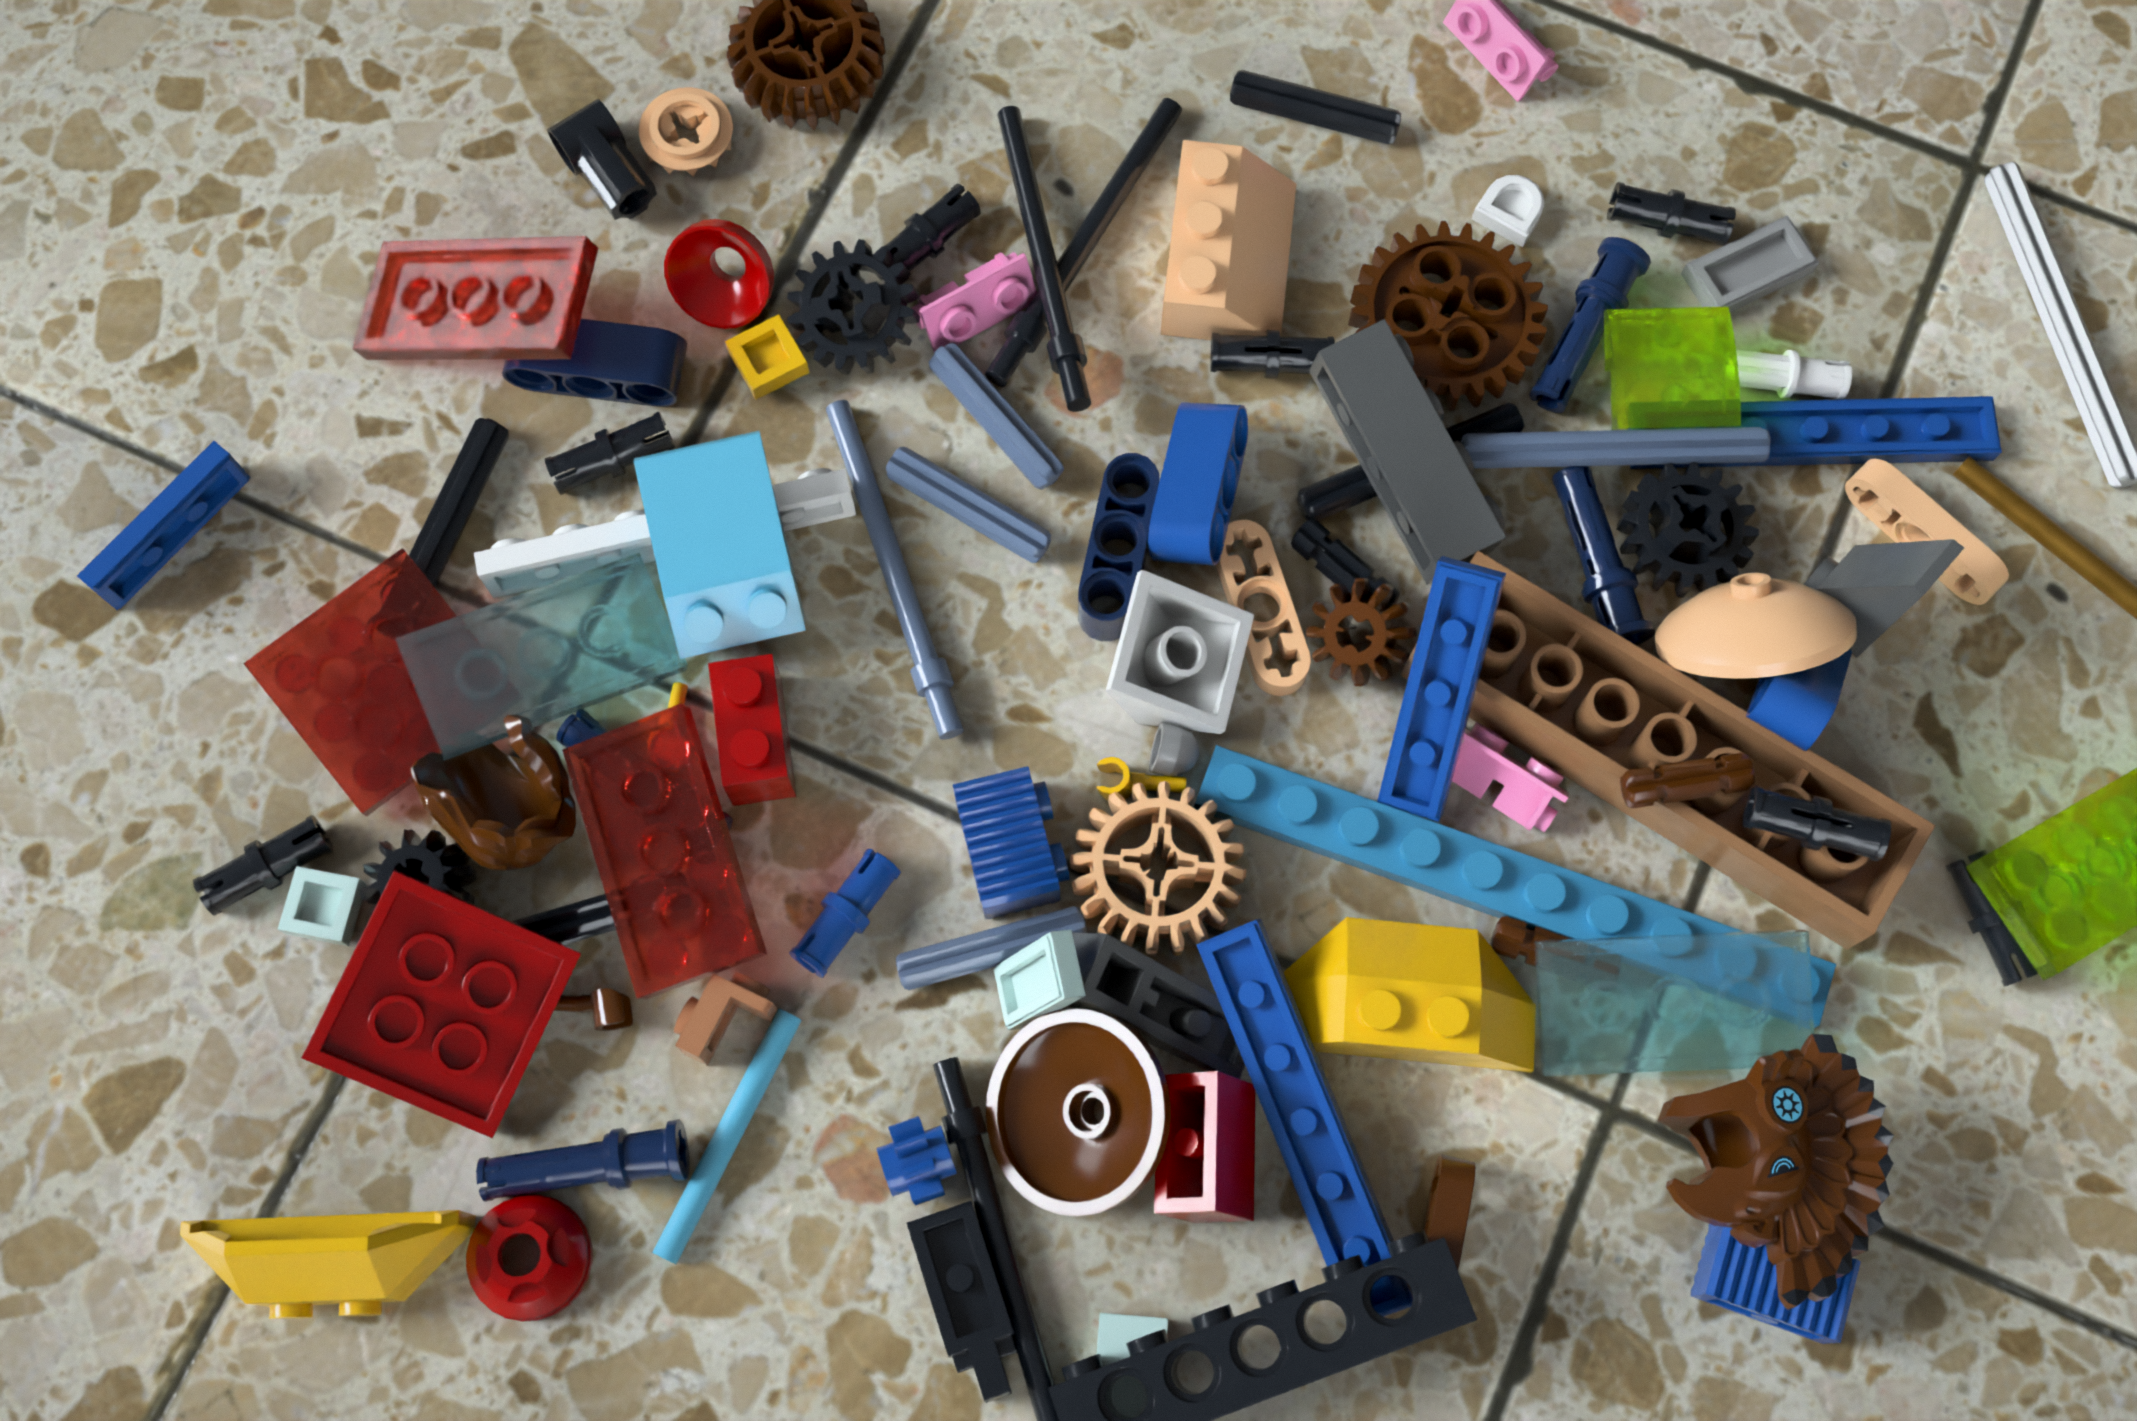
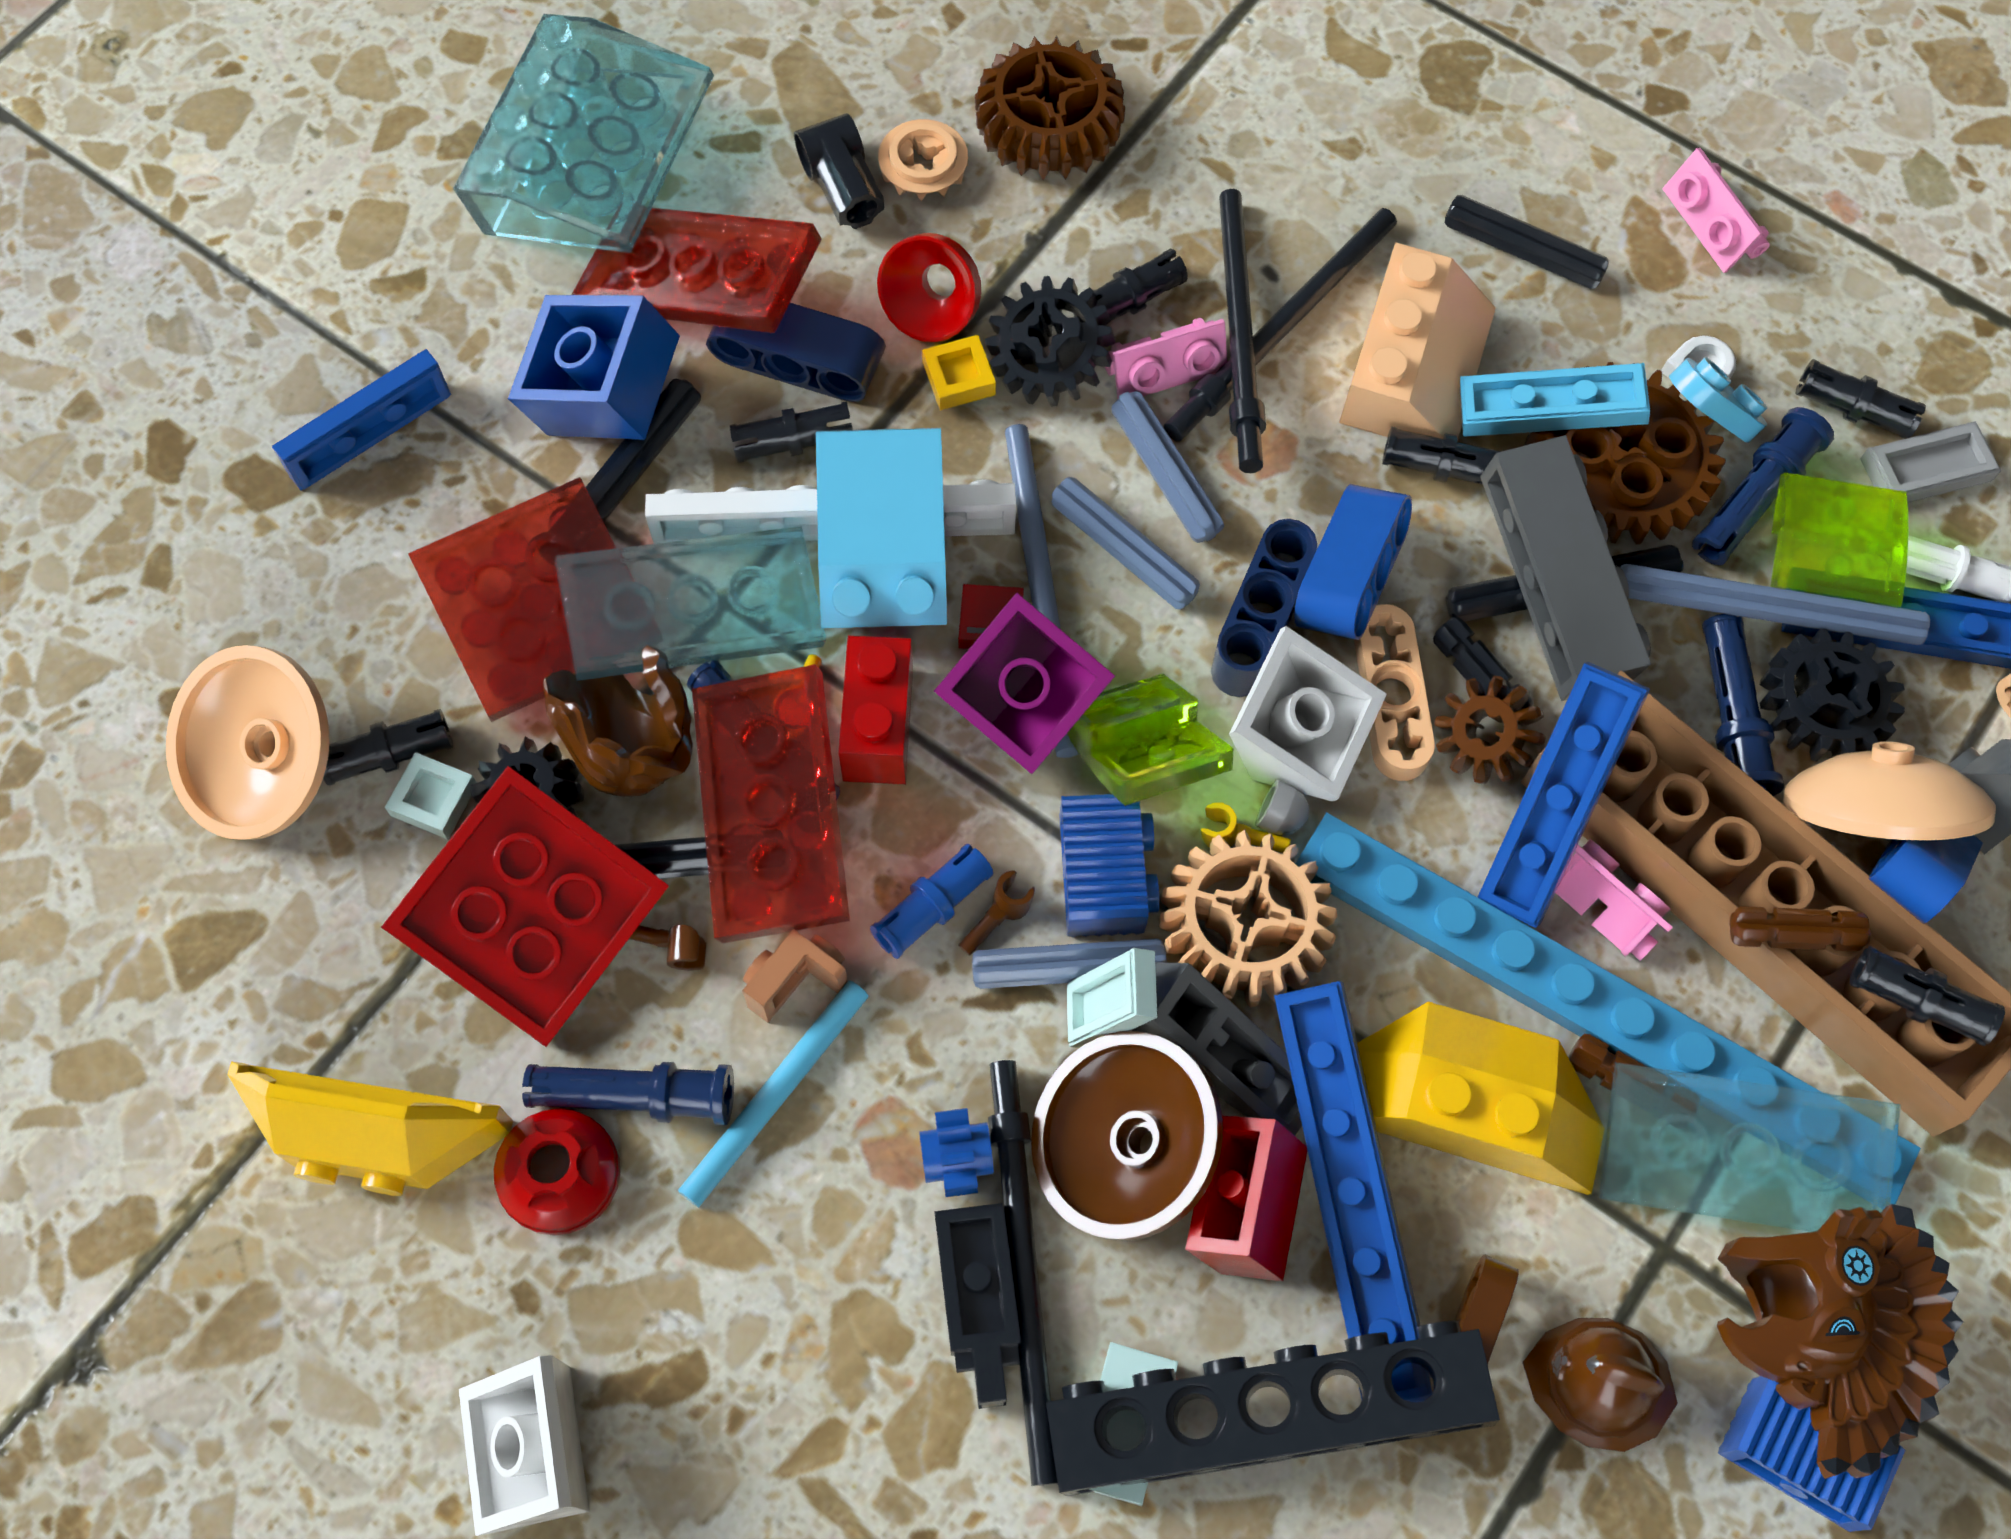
camera: 10 degrees right, 5 degrees down
(122, 892) = (247, 742): none -> light nougat dish
(327, 176) = (581, 136): none -> clear light blue slope
(392, 426) = (594, 366): none -> blue brick
(848, 609) = (979, 608): none -> red tile
(894, 678) = (1024, 683): none -> magenta slope
(912, 911) = (1002, 909): none -> reddish brown hand
(1023, 707) = (1148, 740): none -> clear neon green slope
(1369, 276) = (1554, 400): none -> medium azure tile
(1527, 243) = (1709, 391): none -> medium azure plate
(1571, 1252) = (1601, 1383): none -> reddish brown piece

